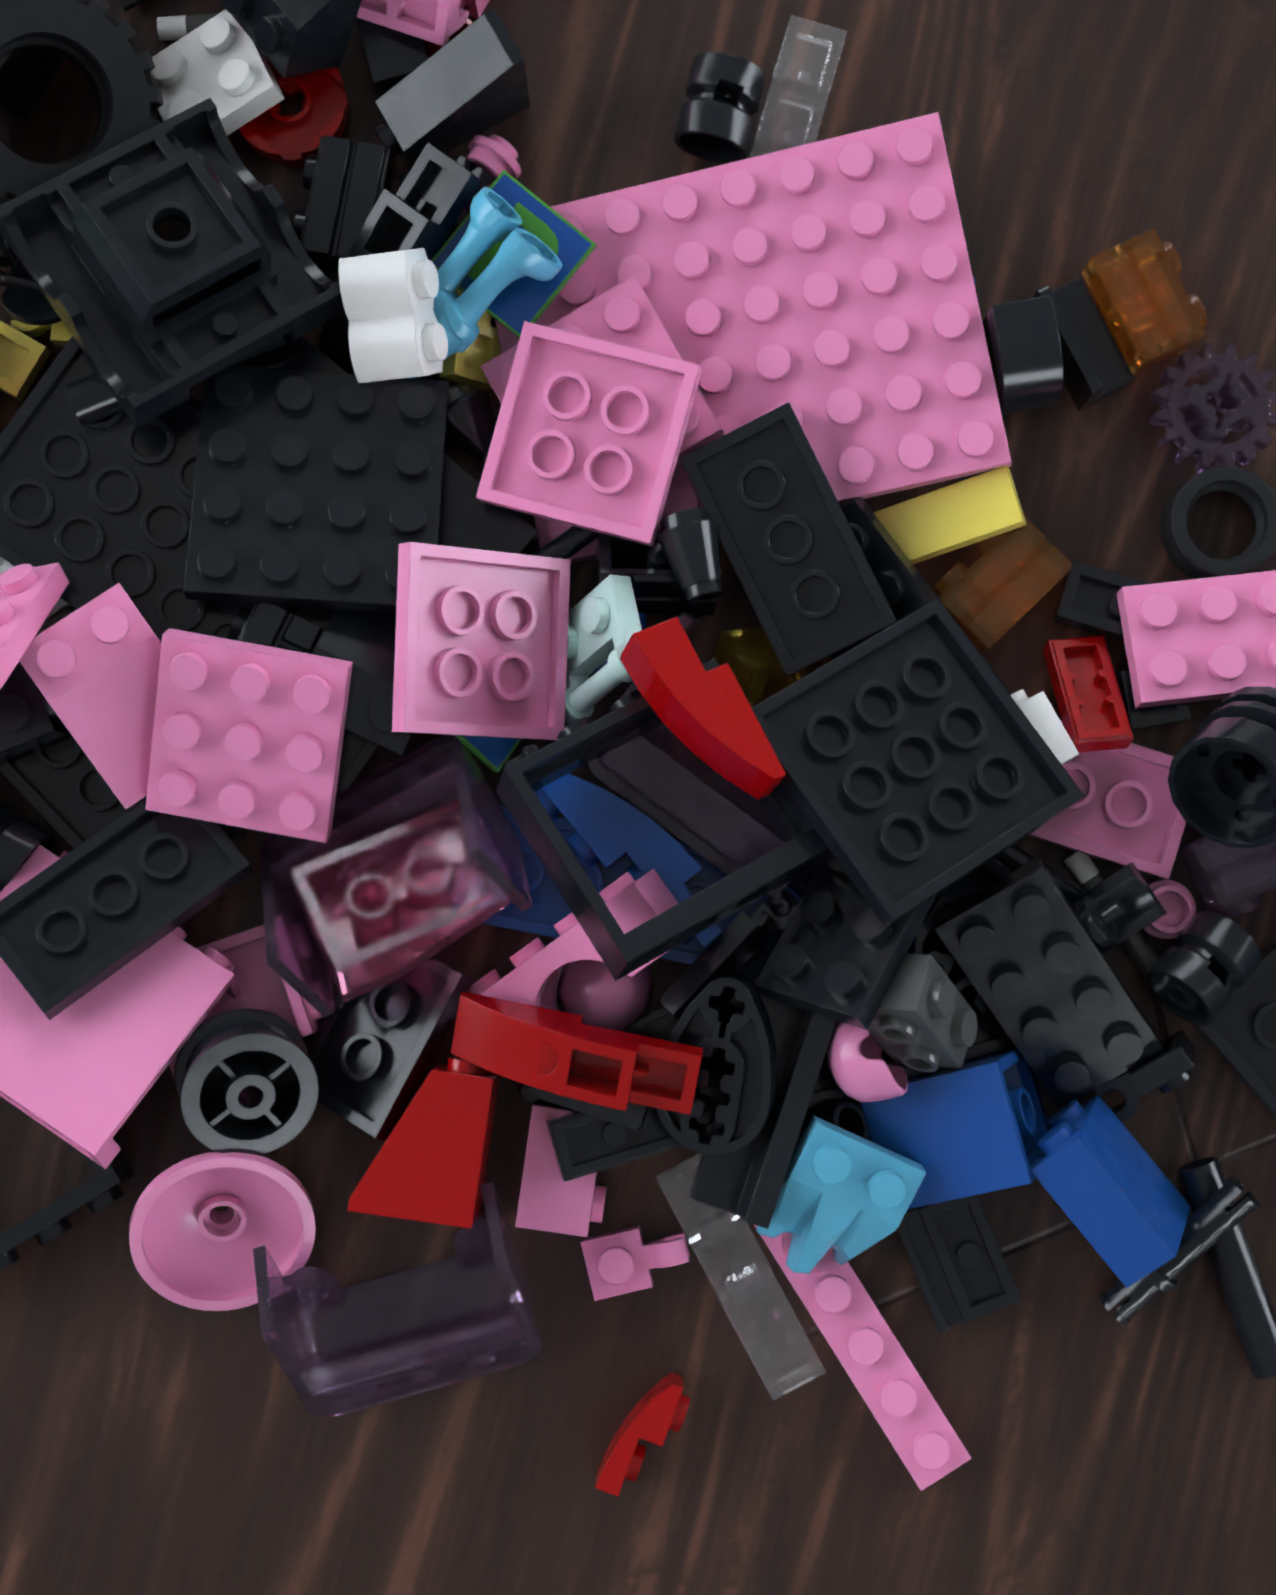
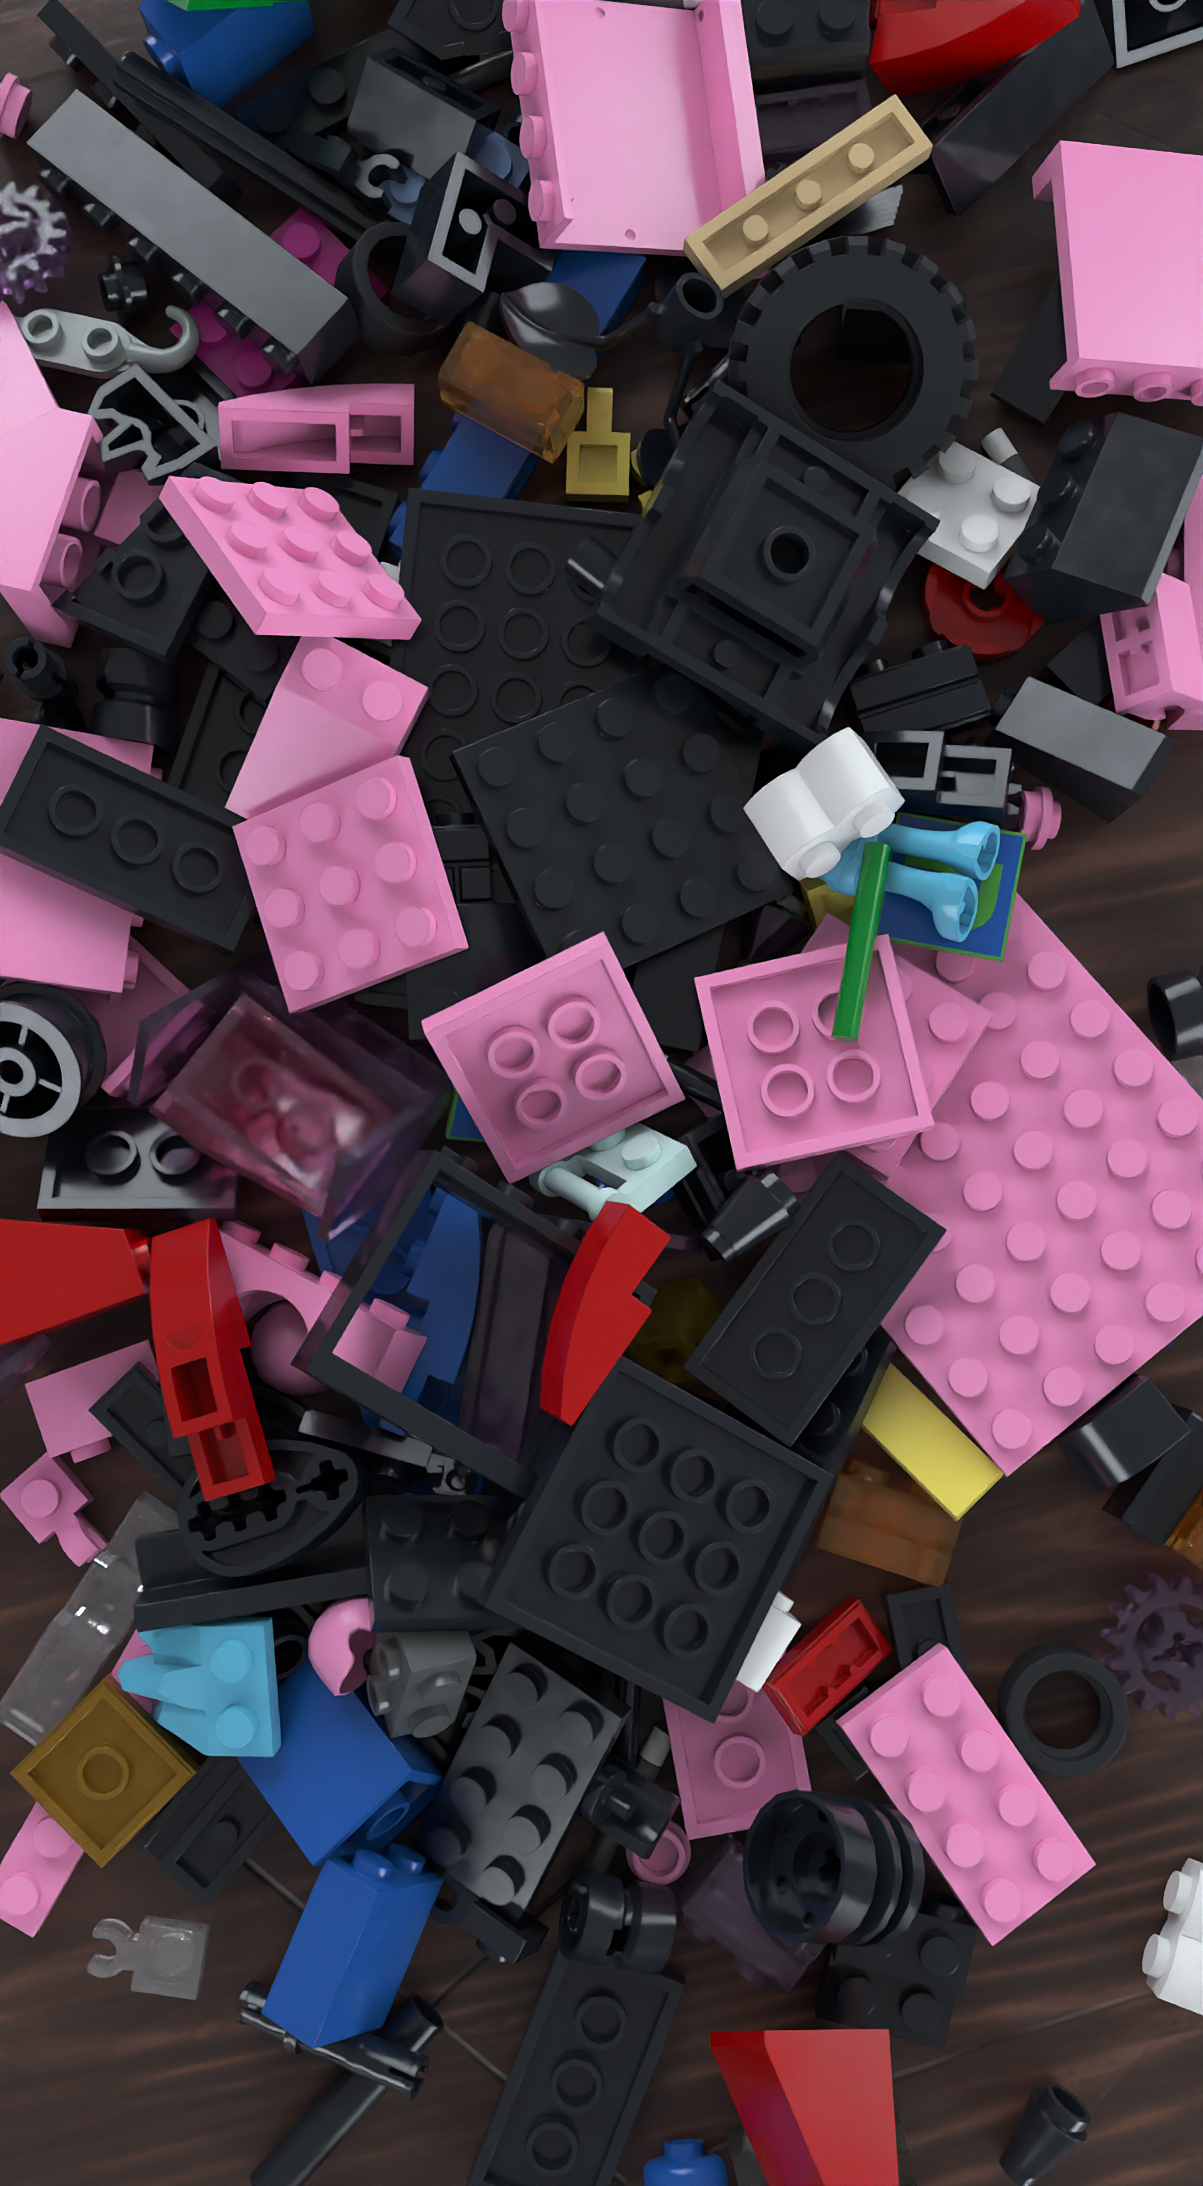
camera: 60 degrees right, 0 degrees up
(519, 345) = (861, 942): none -> green bar
(866, 1324) = (105, 1770): none -> pearl gold tile
(1042, 1357) = (164, 1955): none -> clear plate

